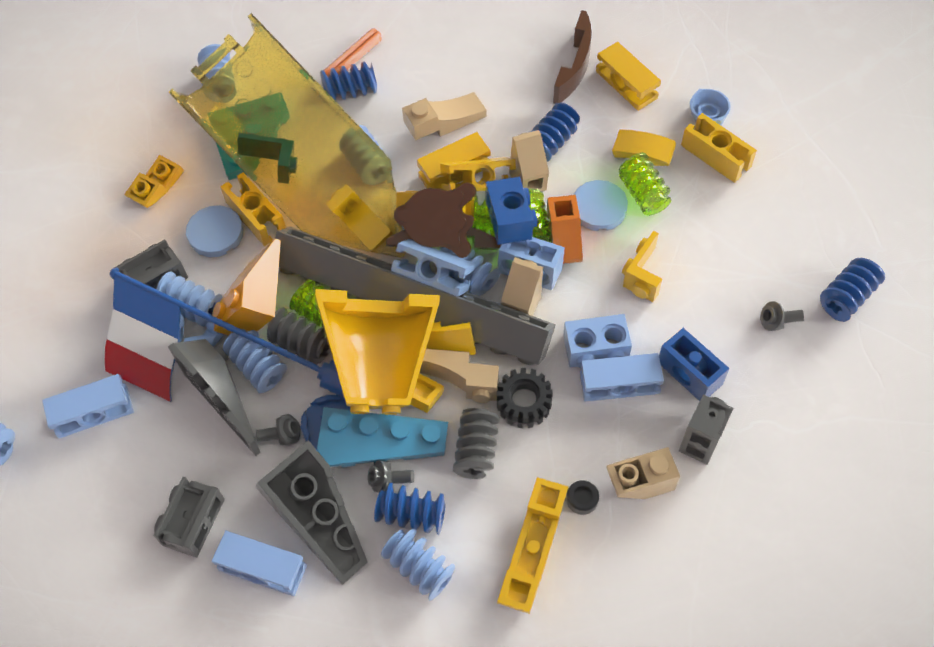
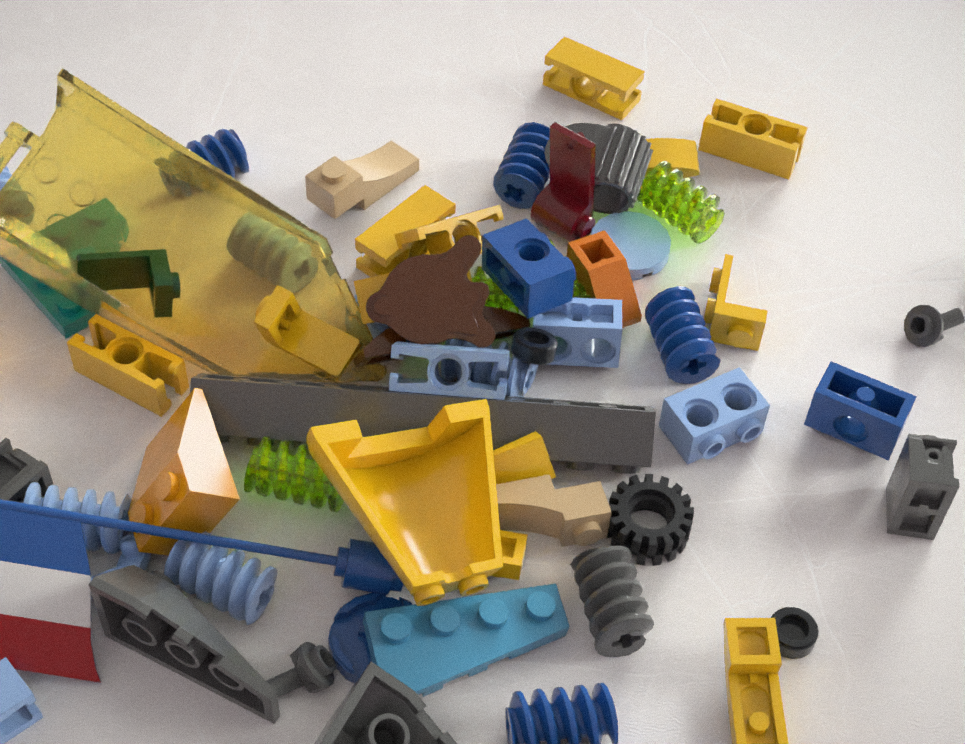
camera: 25 degrees left, 10 degrees down
(214, 231) = (74, 412): light blue tile -> none
(297, 336) = (279, 525): dark grey piece -> none
(356, 51) = (200, 117): axle -> none
(381, 475) = (488, 686): dark grey plate -> none
(494, 264) = (534, 346): none -> black tile
(523, 286) = (586, 363): tan slope -> none
(530, 160) = (519, 196): tan slope -> none
(566, 162) = (568, 199): none -> dark red door
(570, 78) = (514, 47): reddish brown slope -> none
(600, 150) = (619, 164): none -> dark grey piece
(600, 280) = (681, 336): none -> blue piece
(621, 377) = (769, 454): light blue piece -> none
(644, 475) = (872, 569): tan slope -> none
(711, 103) = (712, 84): light blue hat -> none

